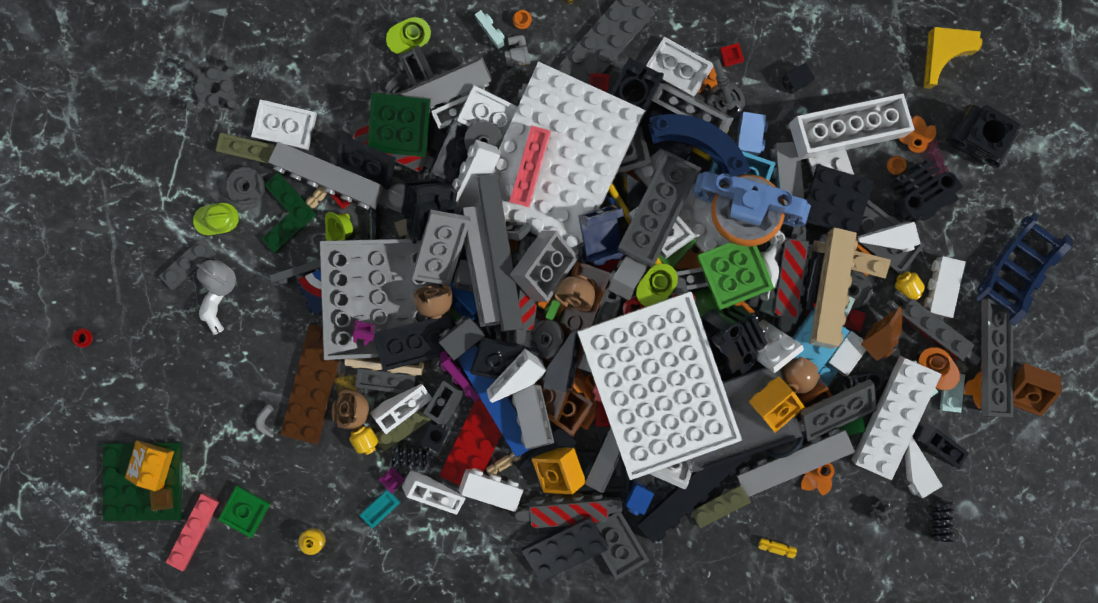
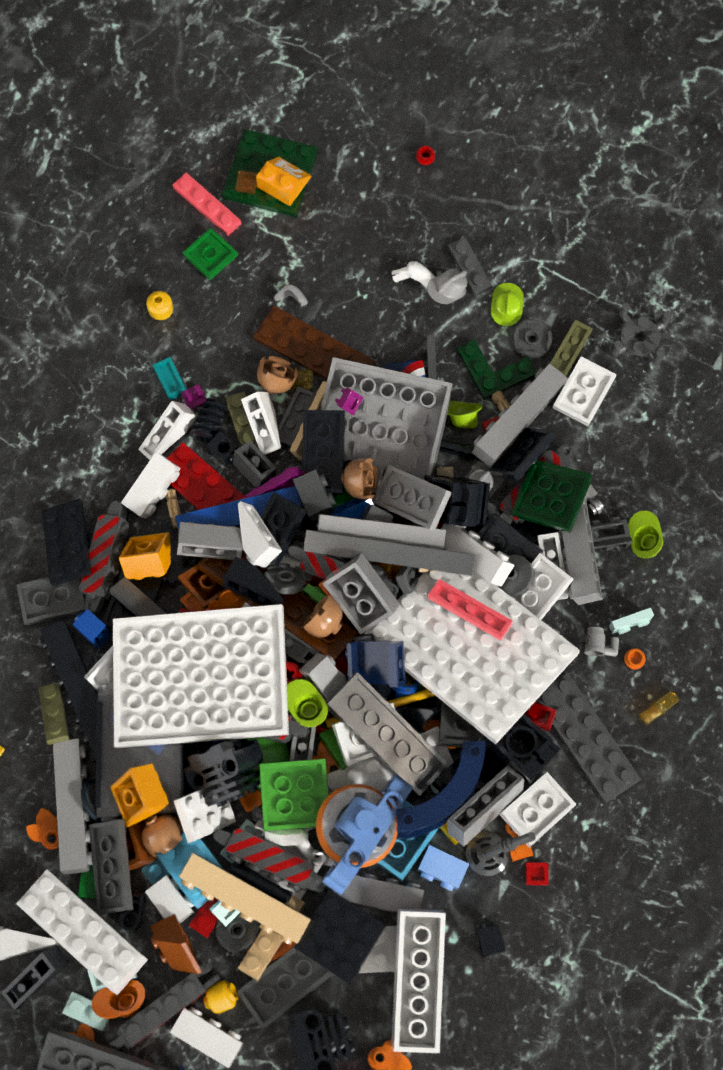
camera: 105 degrees right, 15 degrees down
(363, 439) = (242, 380): yellow head -> none
(896, 165) = (361, 1026): orange plate -> none
(899, 236) = (279, 991): white slope -> none

